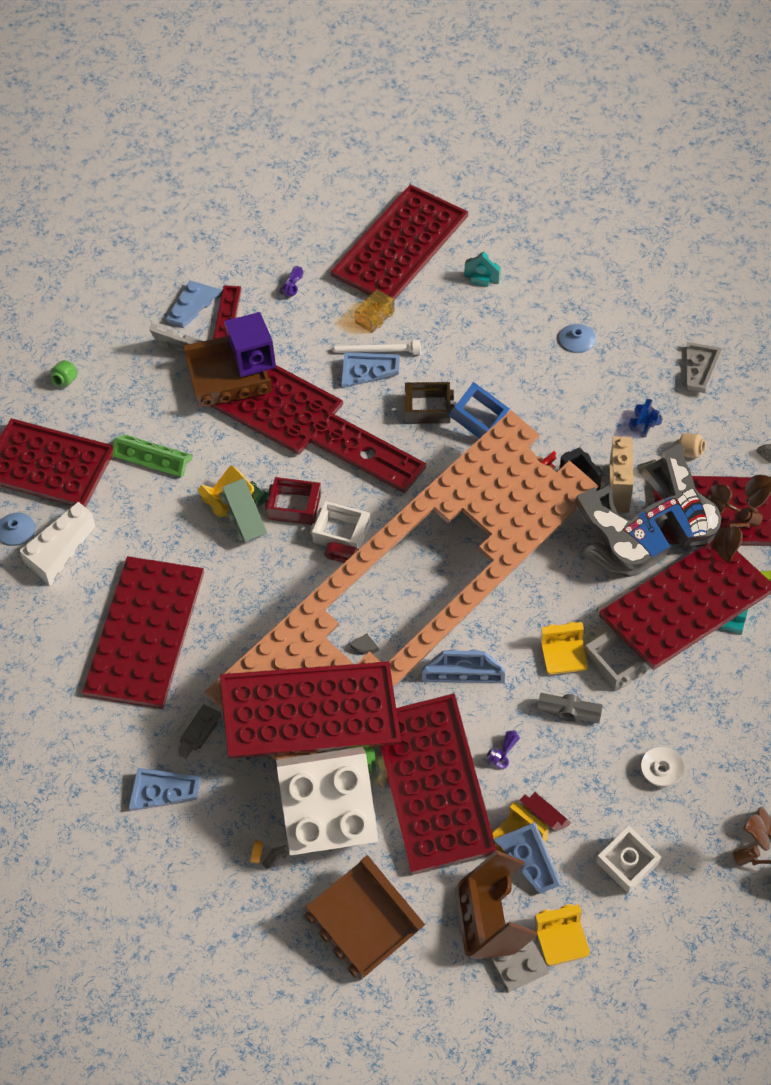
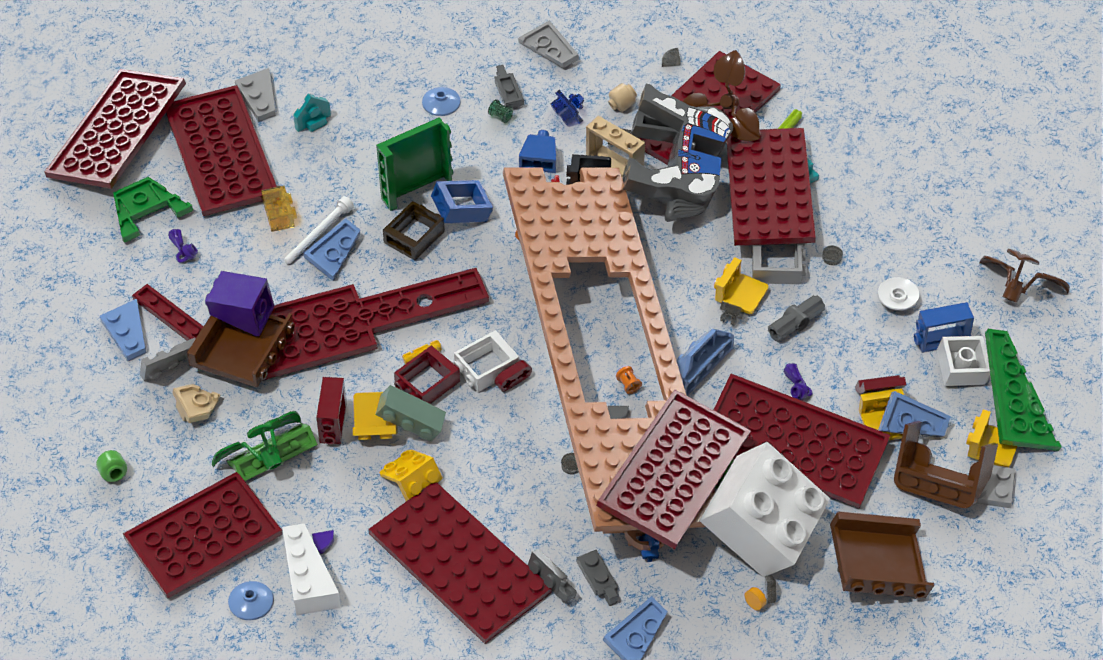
camera: 55 degrees left, 5 degrees down
(96, 536) = (323, 540): none -> dark purple tile
(137, 451) = (269, 454): none -> green plant
(157, 382) = (194, 402): none -> tan plate
(162, 716) = (552, 575): none -> dark grey hinge
(197, 549) = (412, 472): none -> yellow bracket
(204, 454) = (331, 410): none -> dark red window
(309, 231) = (142, 199): none -> green wing
(329, 487) = (409, 356): none -> yellow axle
(361, 174) = (115, 128): none -> dark red plate
(403, 631) = (628, 379): none -> orange bush
(475, 228) = (258, 94): none -> light grey wing
(475, 353) = (414, 160): none -> green panel
(535, 658) = (732, 311): none -> clear smoke tile
(580, 428) = (539, 152): none -> blue torso
(599, 378) = (500, 111): none -> clear green bush
(612, 931) = (1015, 400): none -> green wing
(627, 368) = (508, 88): none -> dark grey hinge
(650, 821) = (957, 313): none -> blue window
(664, 693) = (832, 255): none -> clear smoke tile

